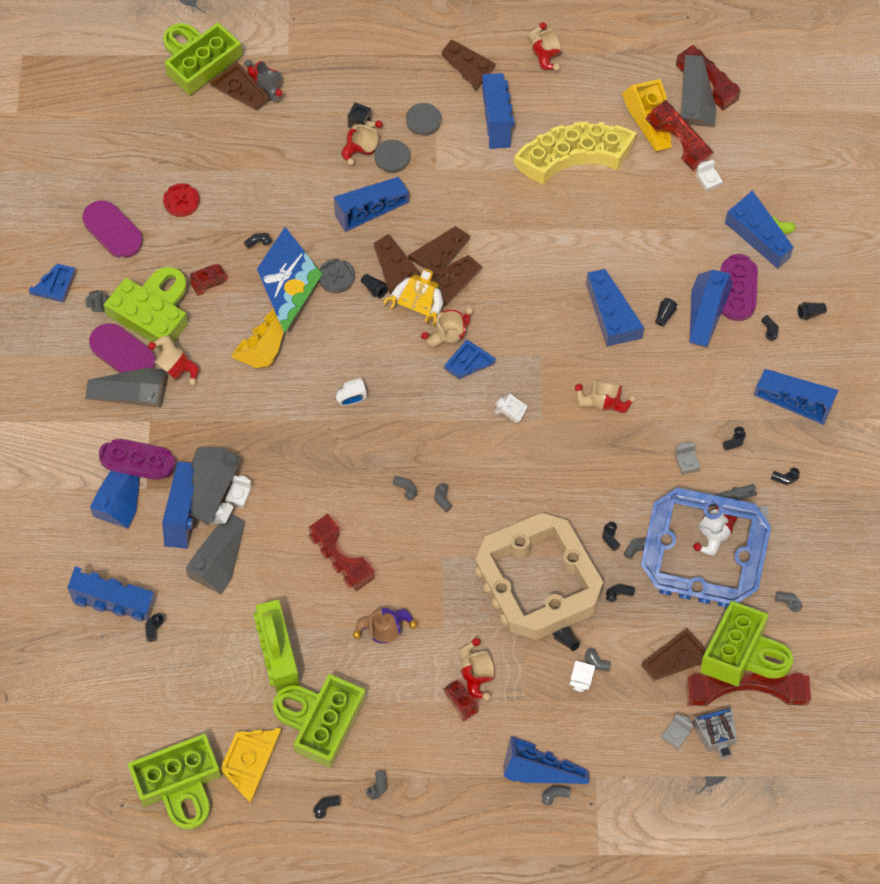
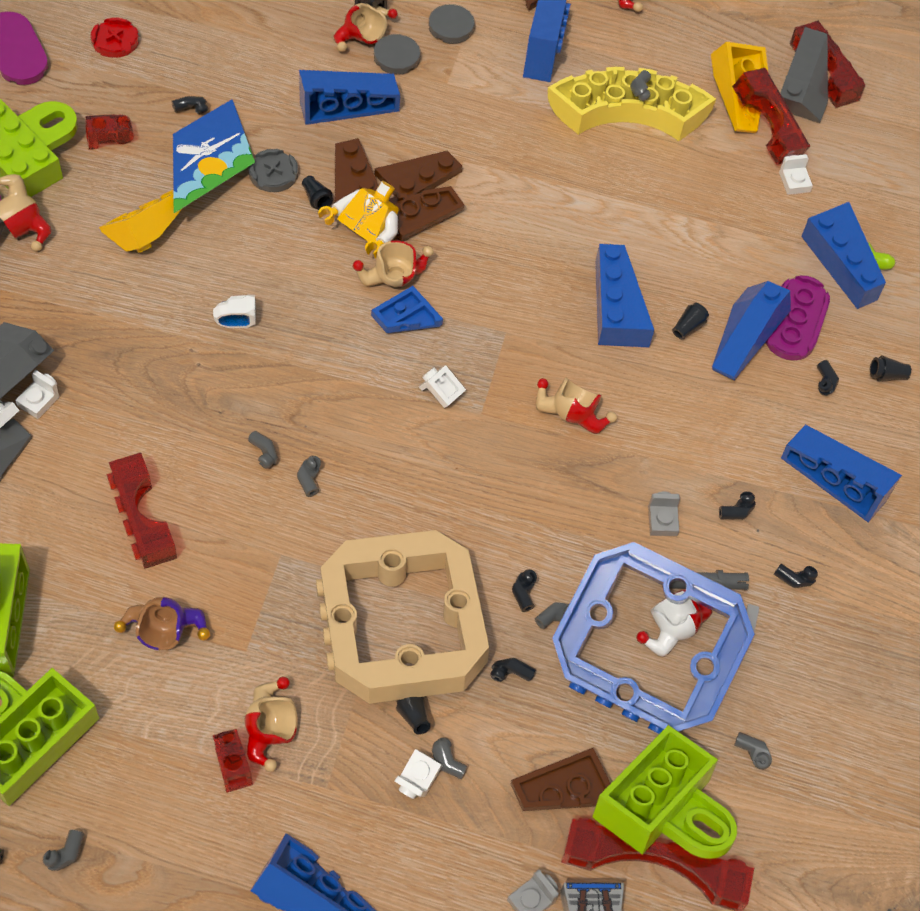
camera: 10 degrees right, 5 degrees down
(579, 139) = (639, 86): none -> dark grey arm

